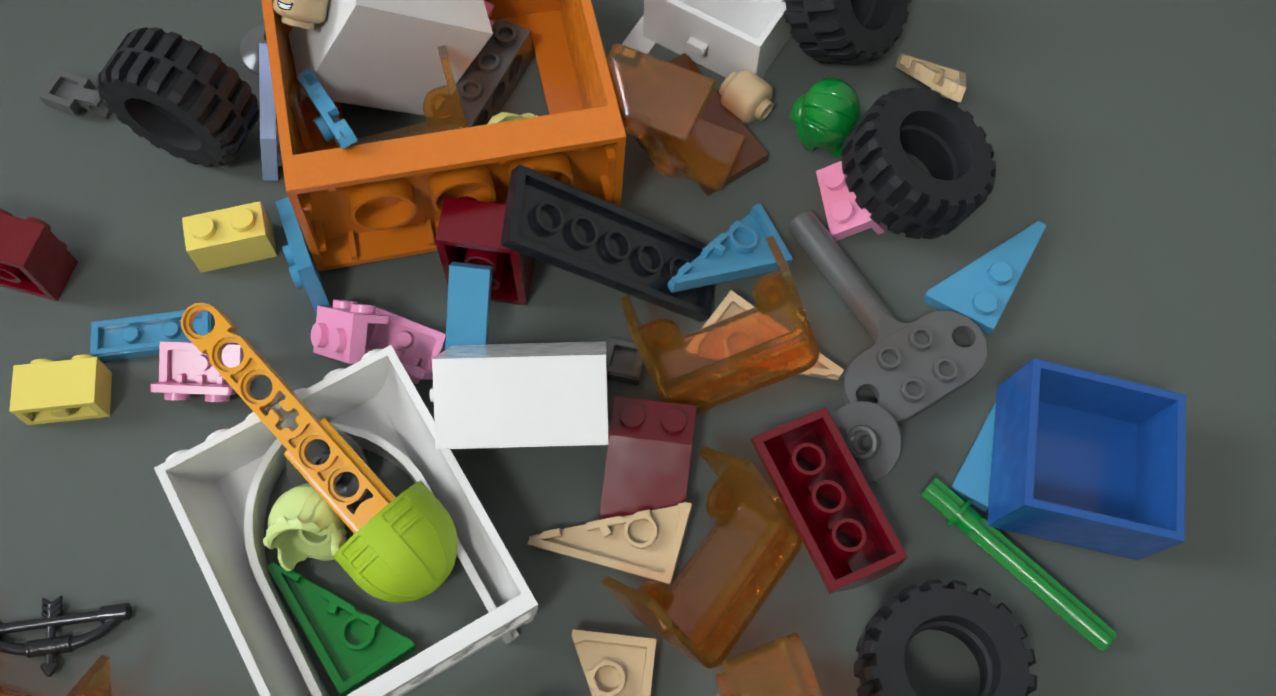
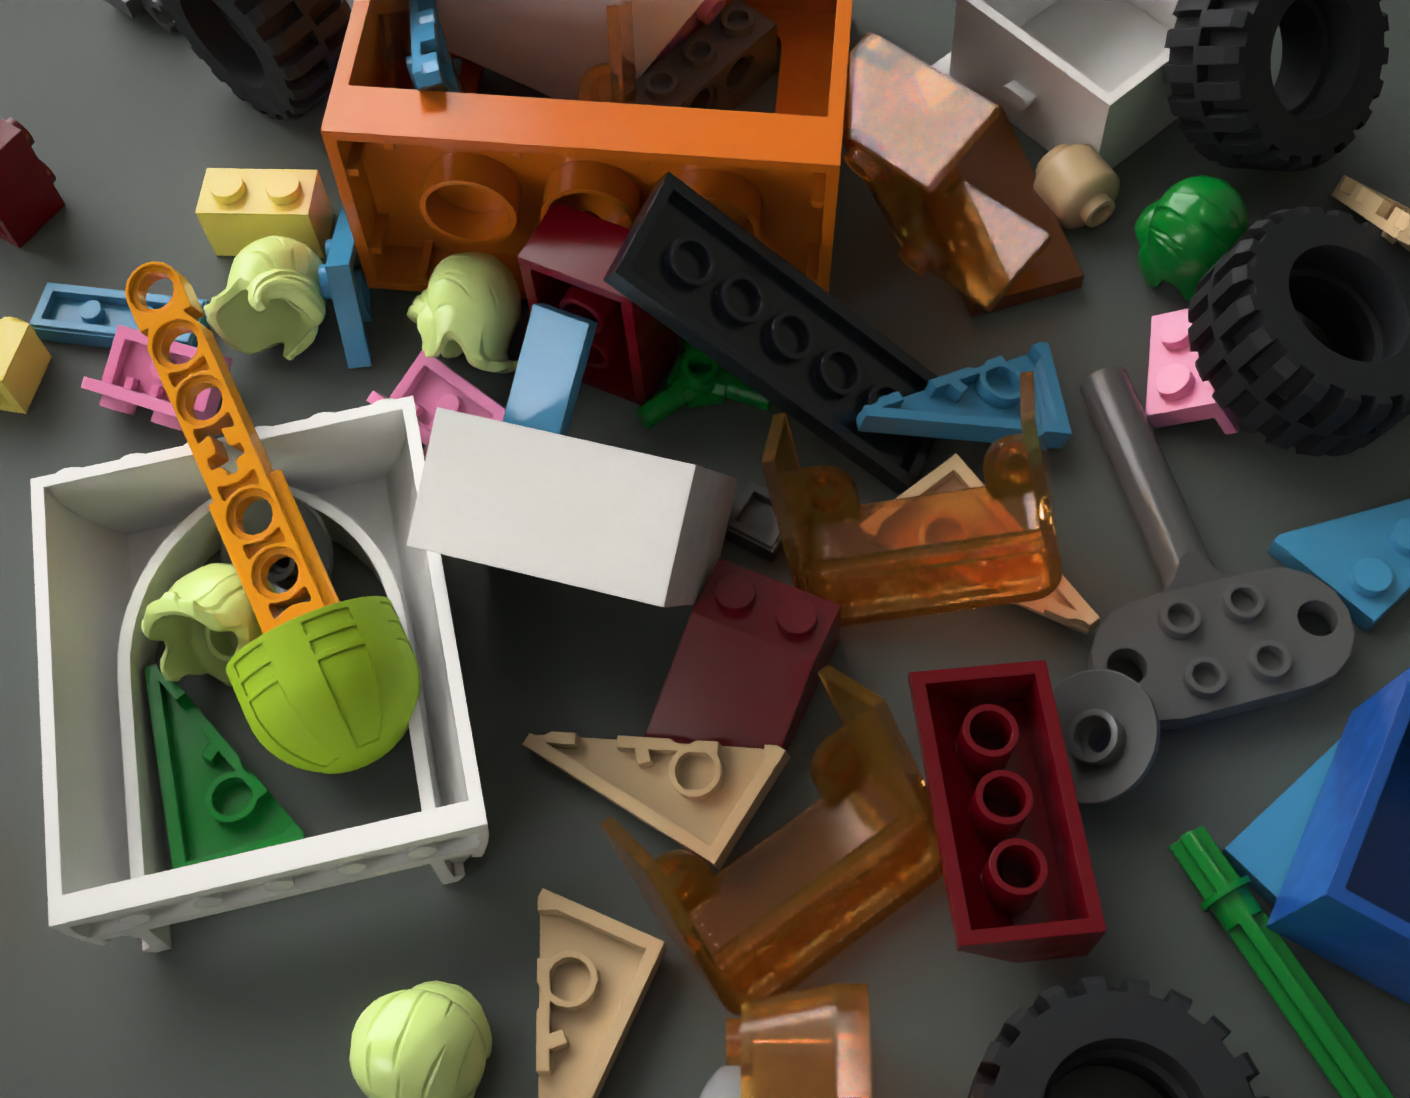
camera: 25 degrees right, 5 degrees down
(260, 294) = (270, 298): none -> yellowish green hair
(342, 329) = (363, 363): bright pink bracket -> none
(398, 269) = (469, 309): none -> yellowish green hair
(553, 285) = (697, 383): none -> green piece

